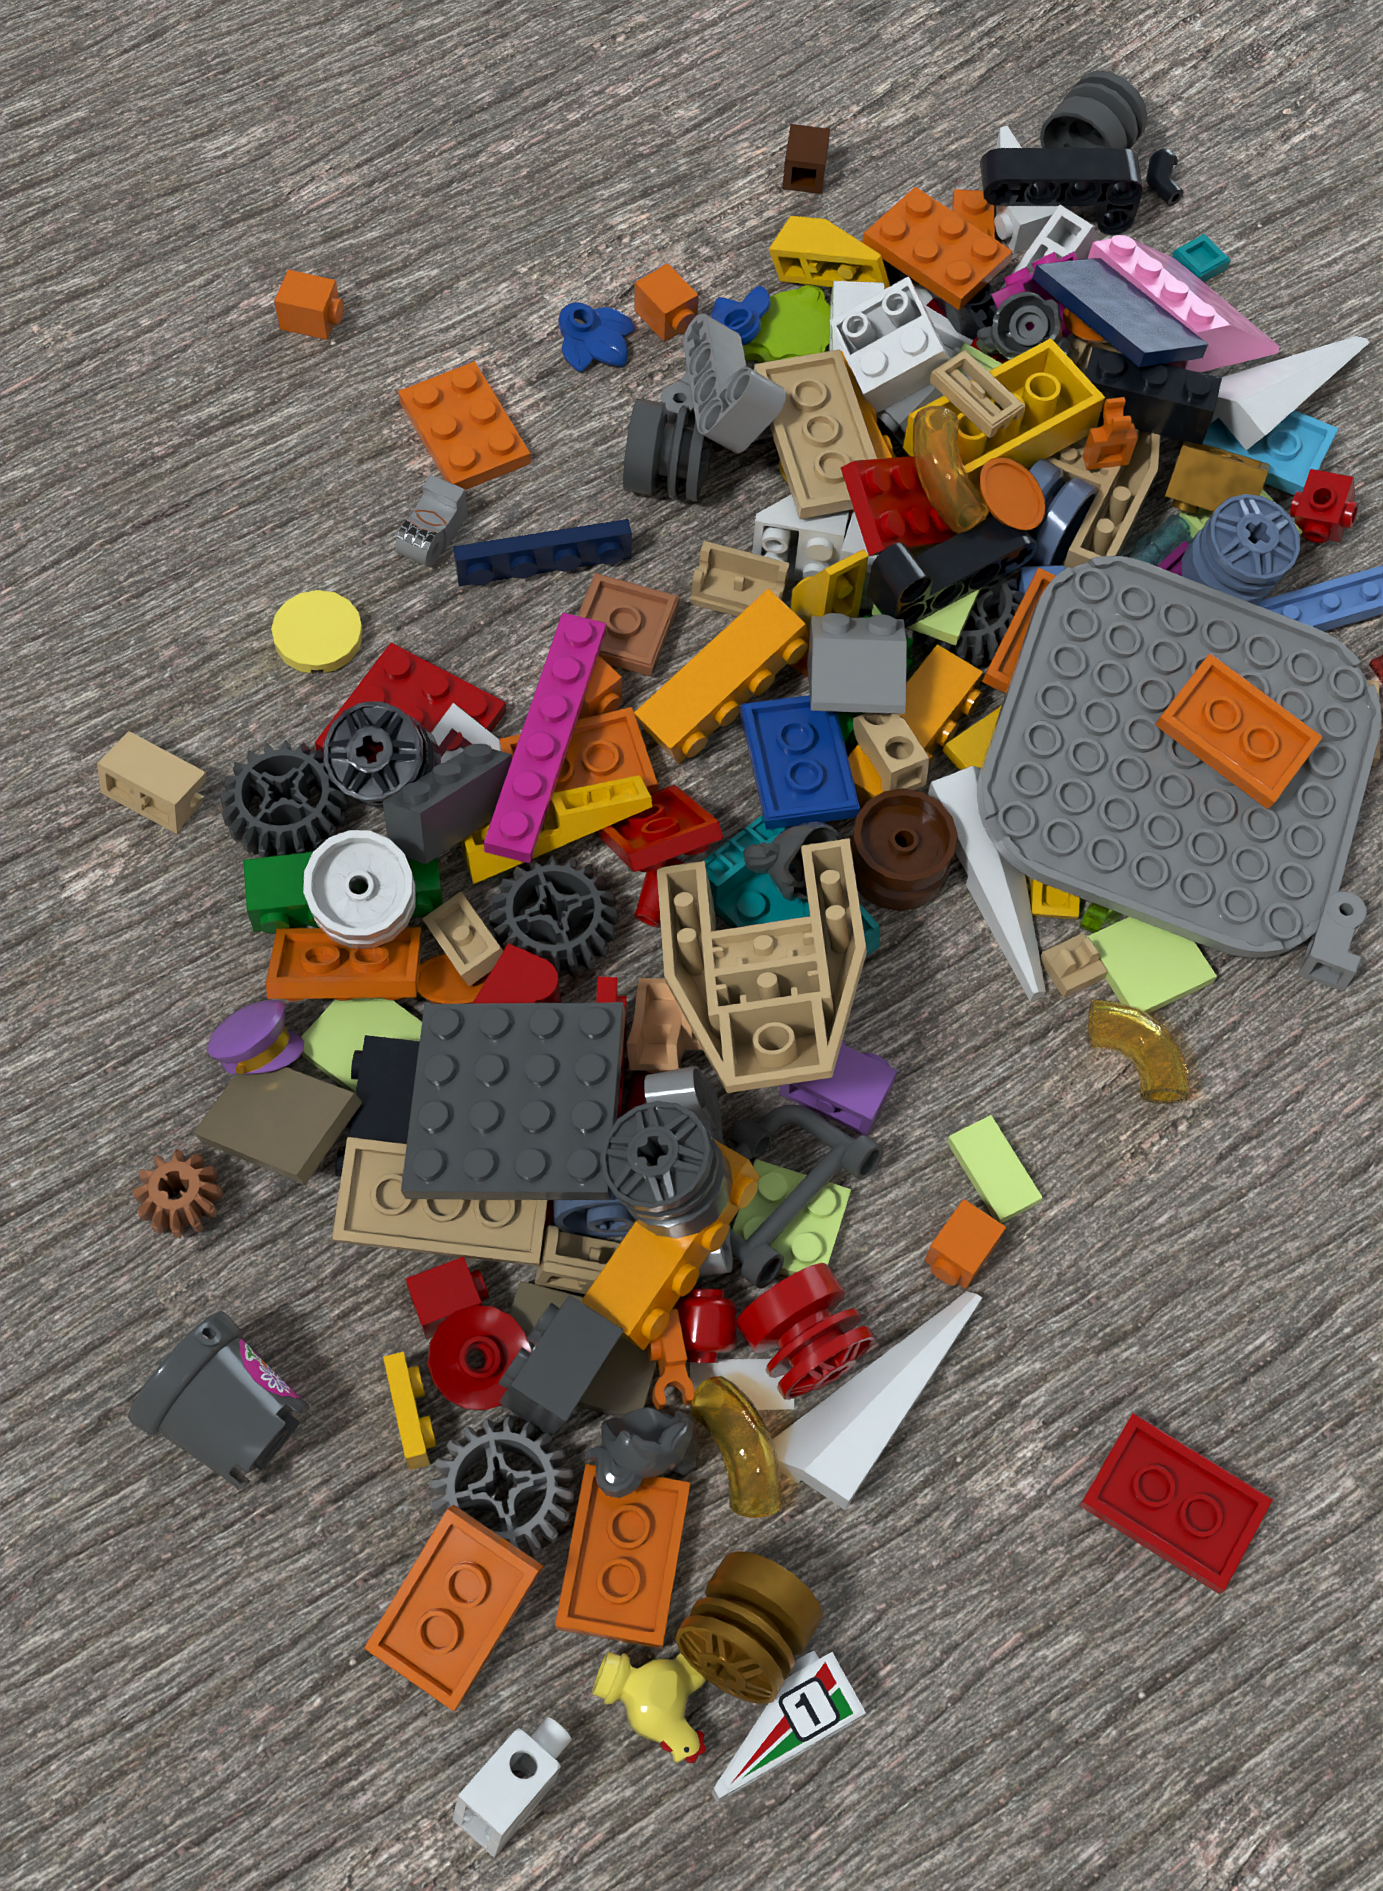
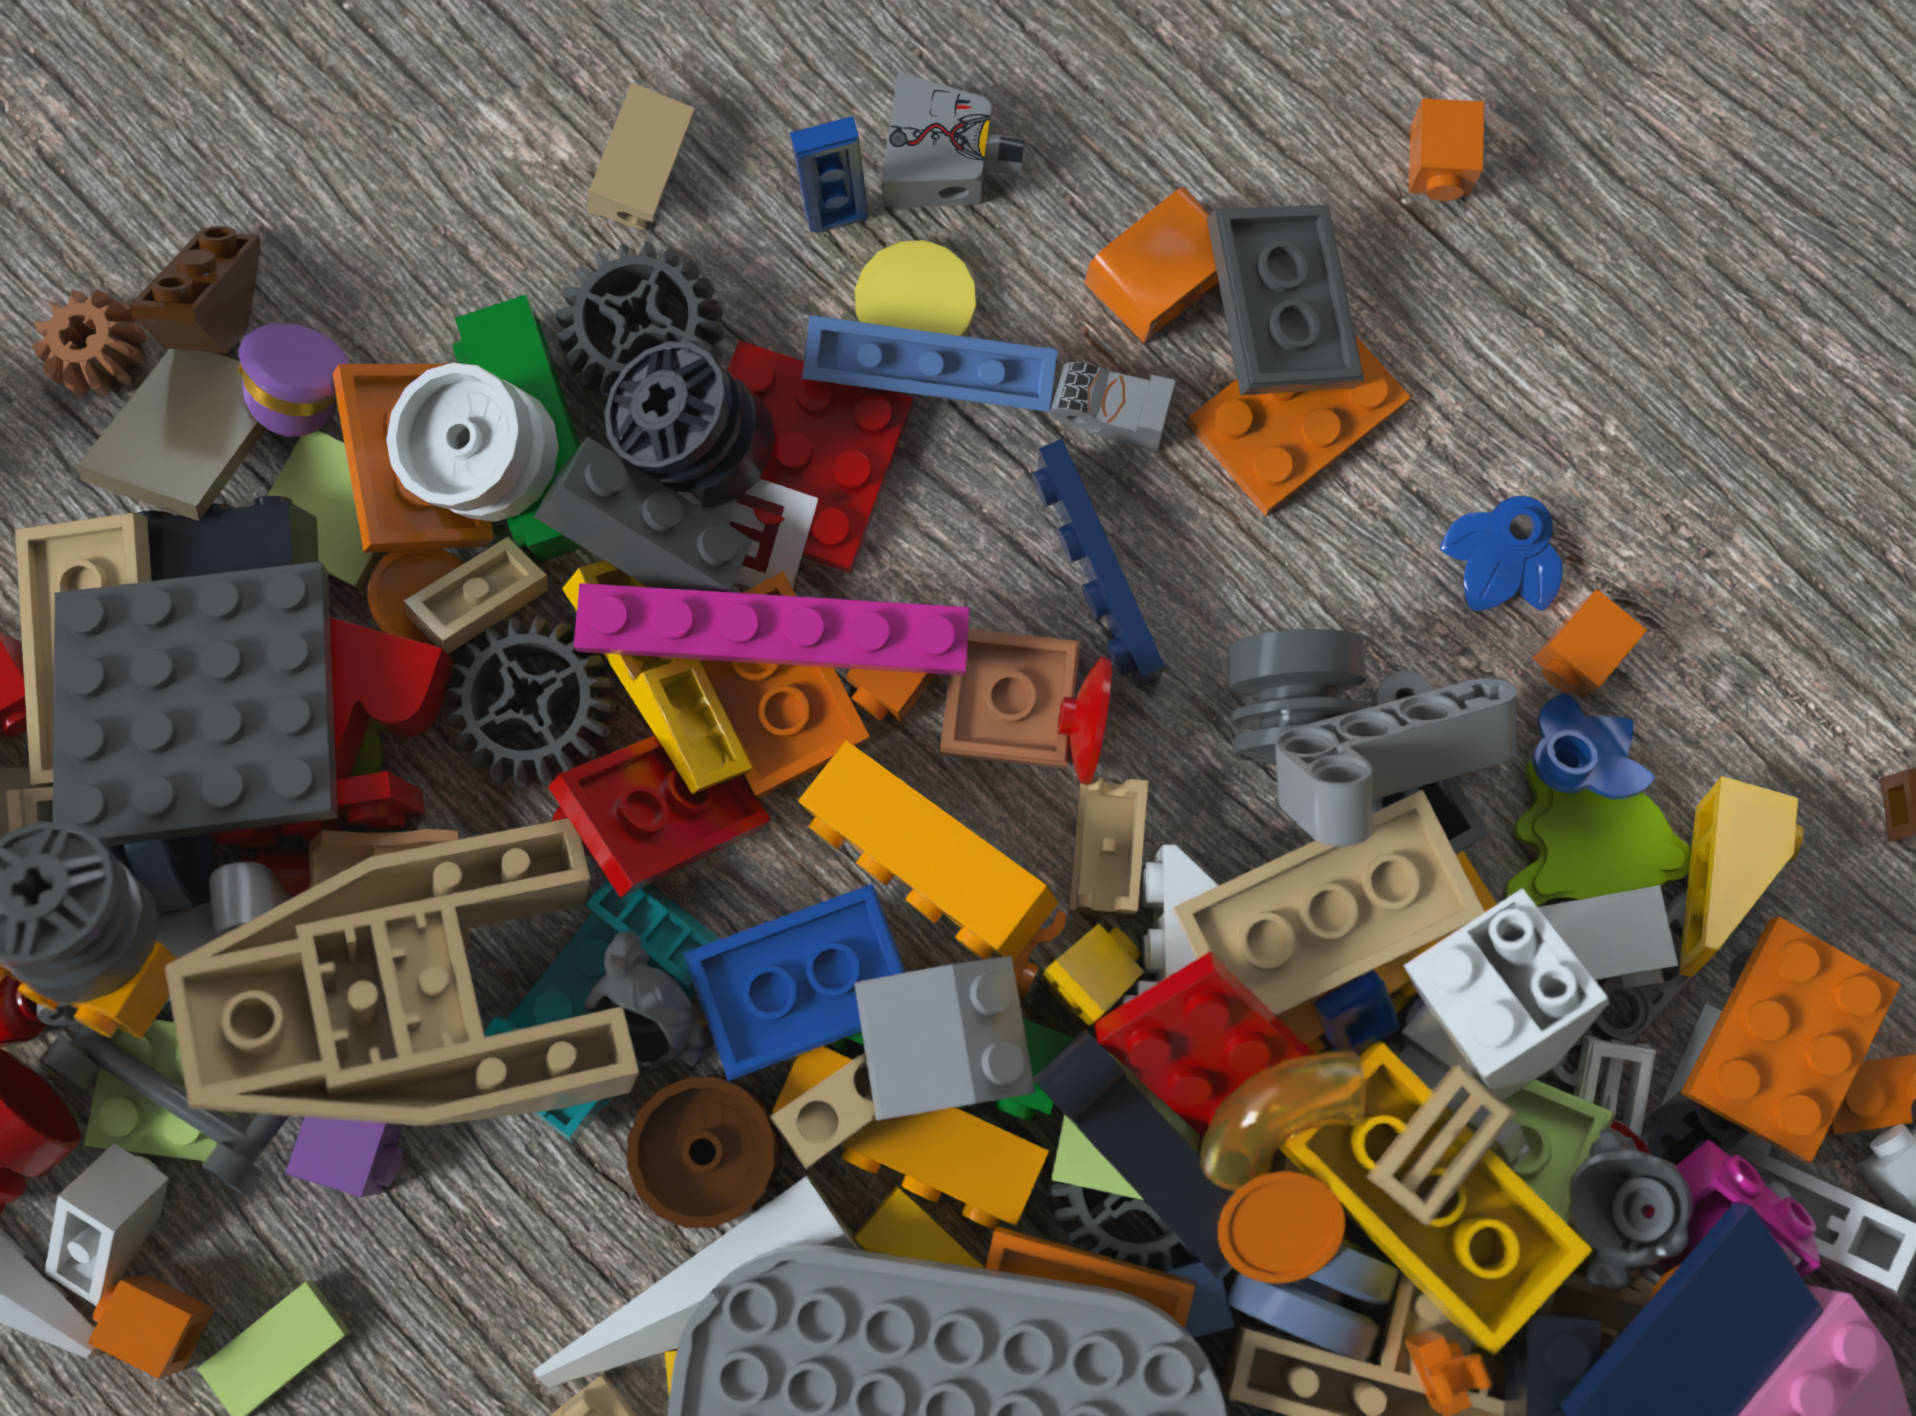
camera: 85 degrees right, 15 degrees up
(165, 1092) = (203, 293): none -> reddish brown slope
(207, 589) = (942, 146): none -> light grey torso
(222, 635) = (830, 174): none -> blue tile
(341, 475) = (1156, 266): none -> orange piece
(371, 621) = (929, 363): none -> medium blue plate
(391, 402) = (1284, 299): none -> dark grey tile
(655, 563) = (1086, 719): none -> red dish
(886, 1268) = (104, 1222): none -> white slope
(887, 434) = (1357, 1013): none -> clear blue tile

